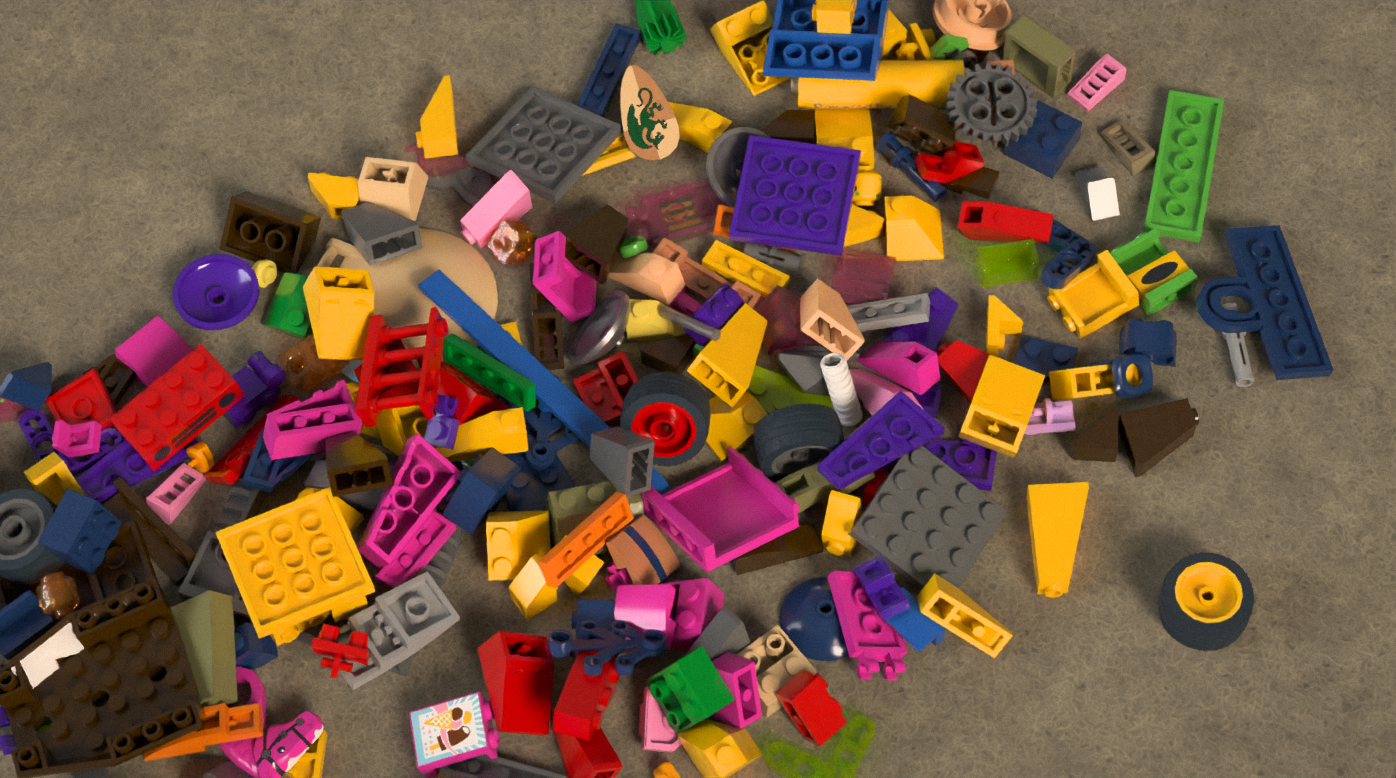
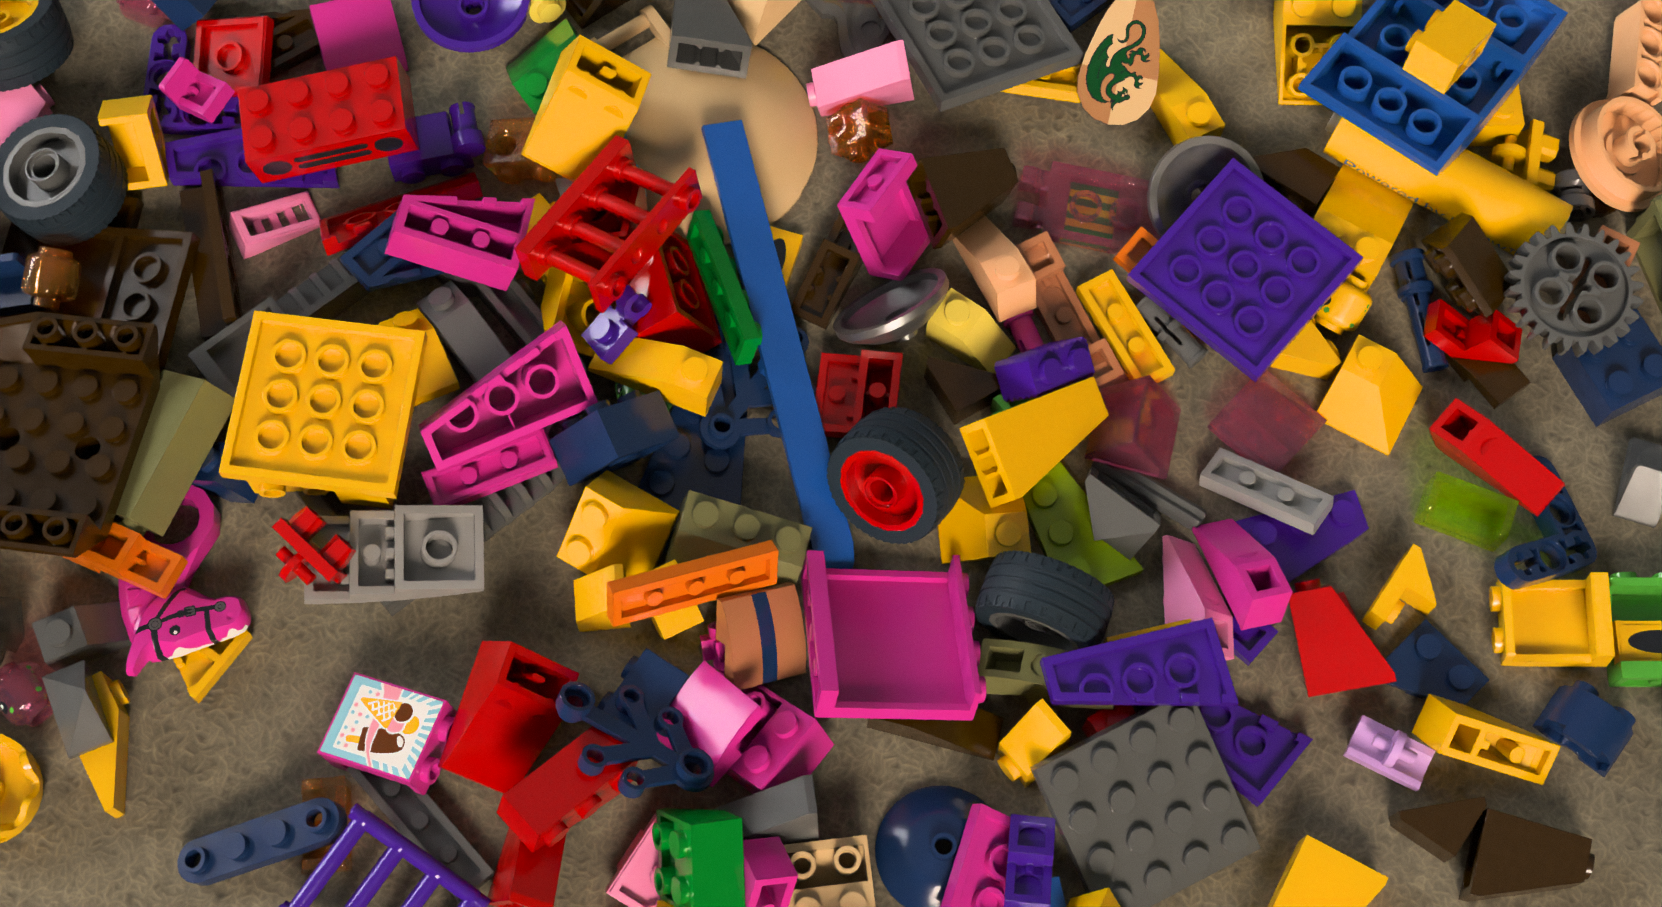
camera: 25 degrees right, 10 degrees up
(80, 531) = (113, 214): dark blue brick -> none
(200, 457) = (329, 196): light orange piece -> none
(355, 465) = (466, 319): dark brown slope -> none
(624, 459) = (806, 501): dark grey slope -> none
(633, 246) = (1001, 220): bright green tile -> none
(689, 323) = (1003, 367): flat silver bar -> none
(829, 320) = (1185, 460): light nougat slope -> none
(841, 389) = (1142, 563): white piece -> none
(947, 44) = (1566, 174): bright green tile -> none
(1001, 406) = (1337, 709): yellow slope -> none
(1119, 367) = (1527, 743): dark blue piece -> none

